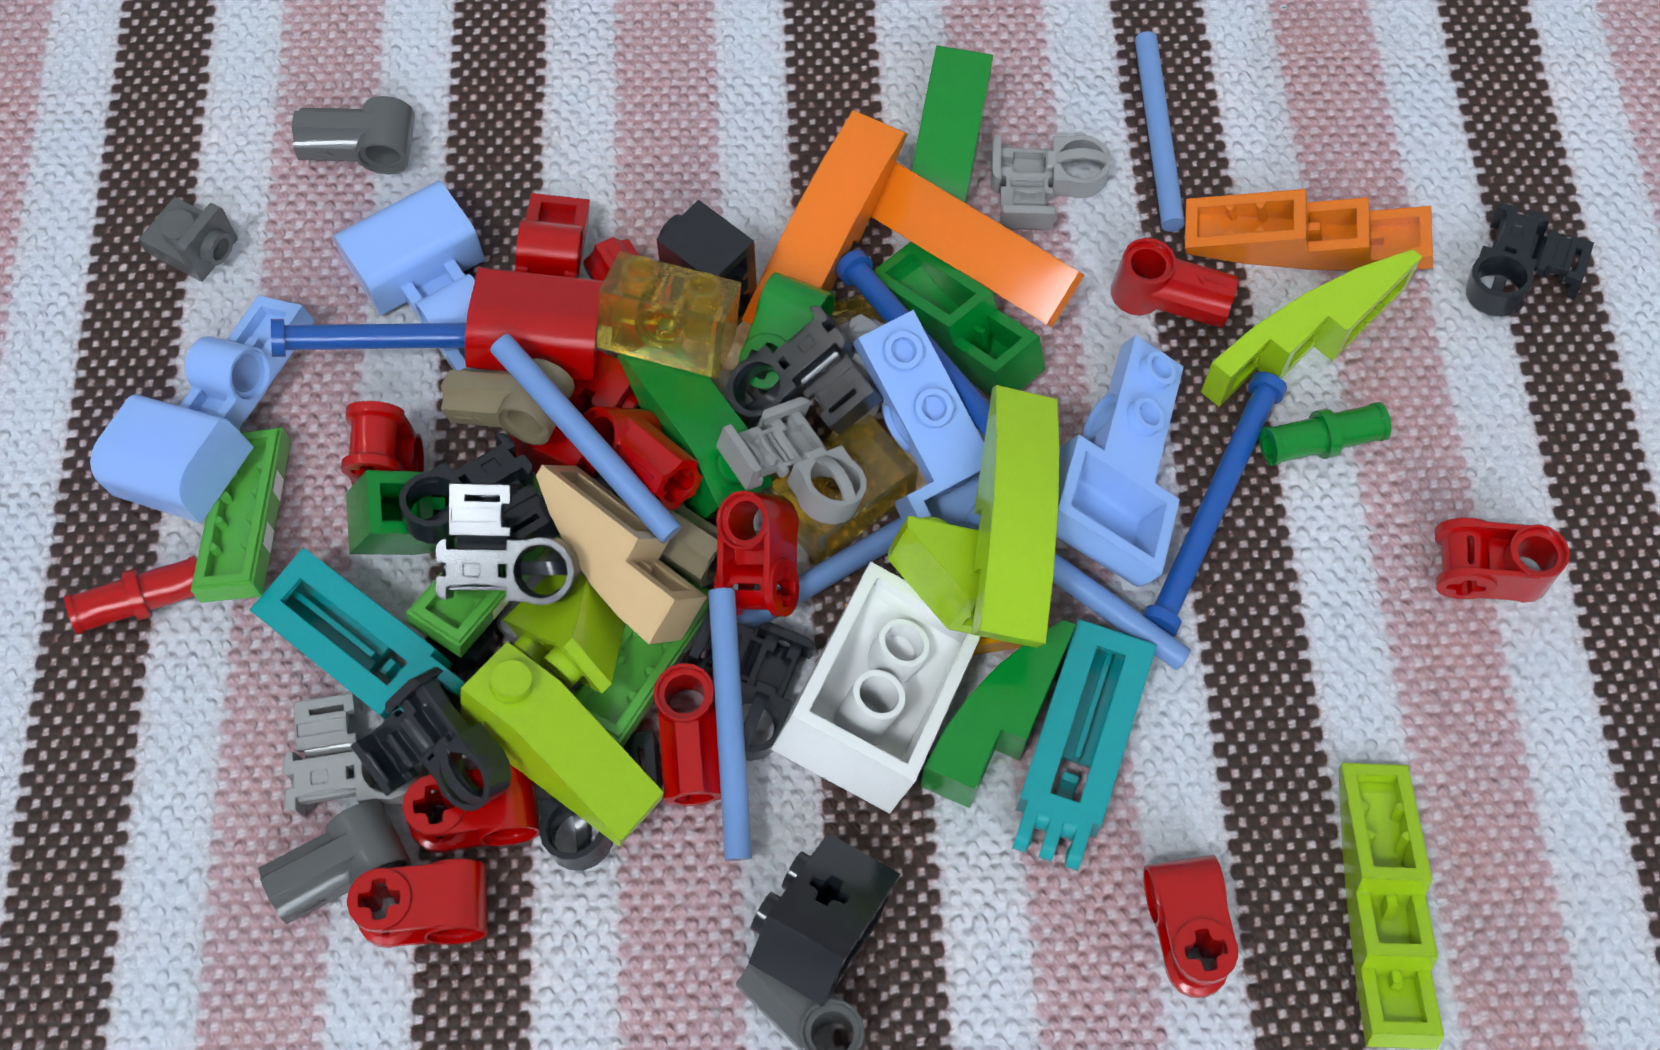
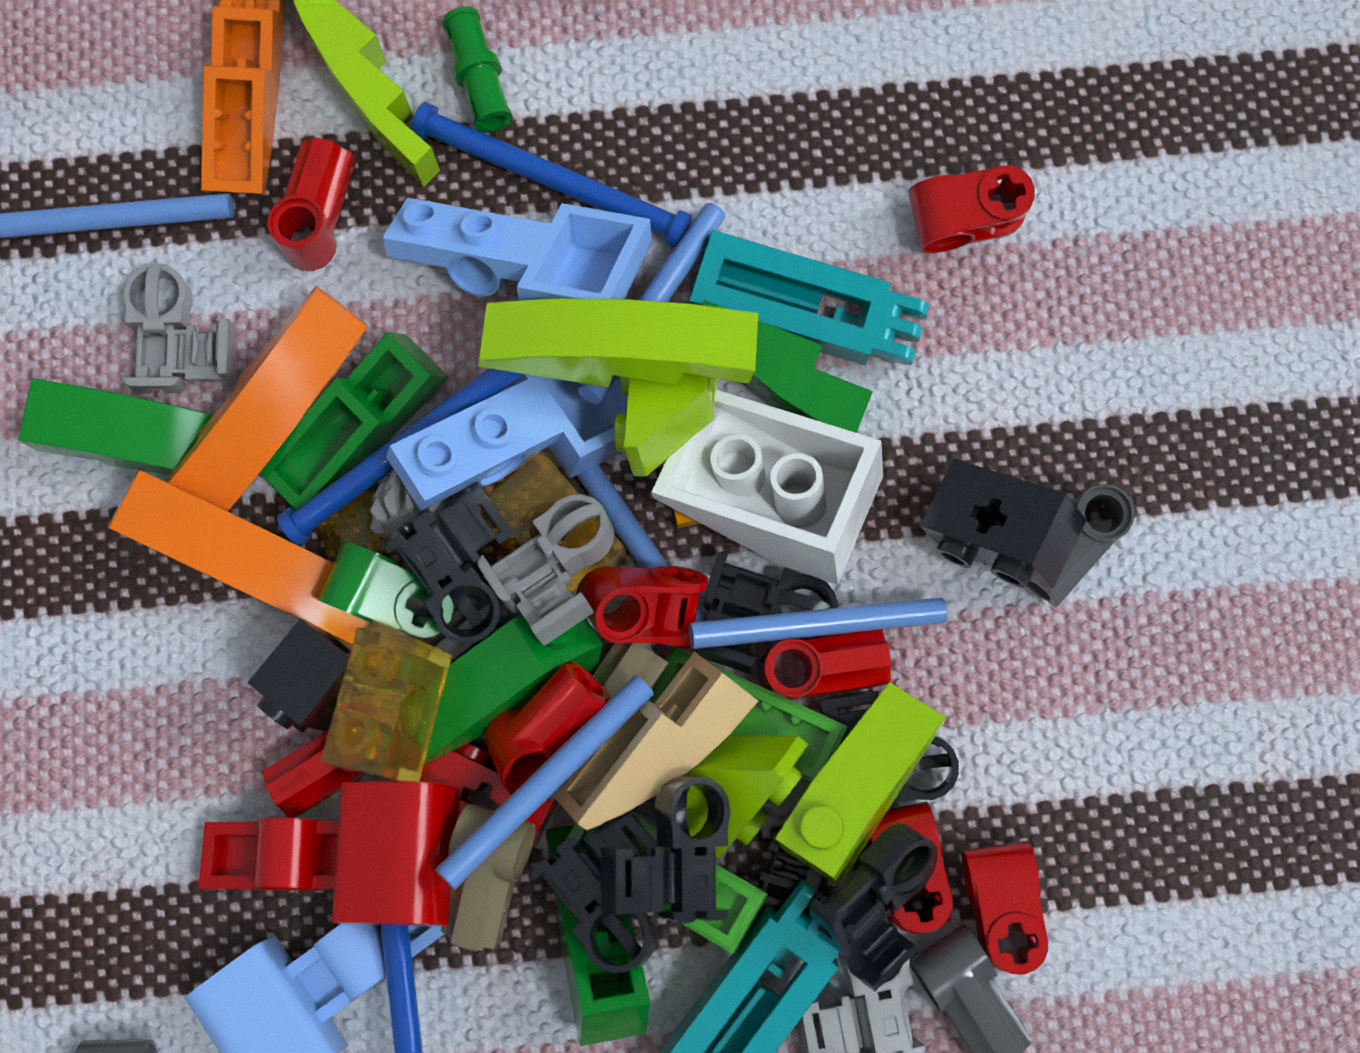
camera: 90 degrees left, 15 degrees up
(381, 440) = (540, 1010): red piece -> none
(1388, 906) = (935, 48): lime slope -> none

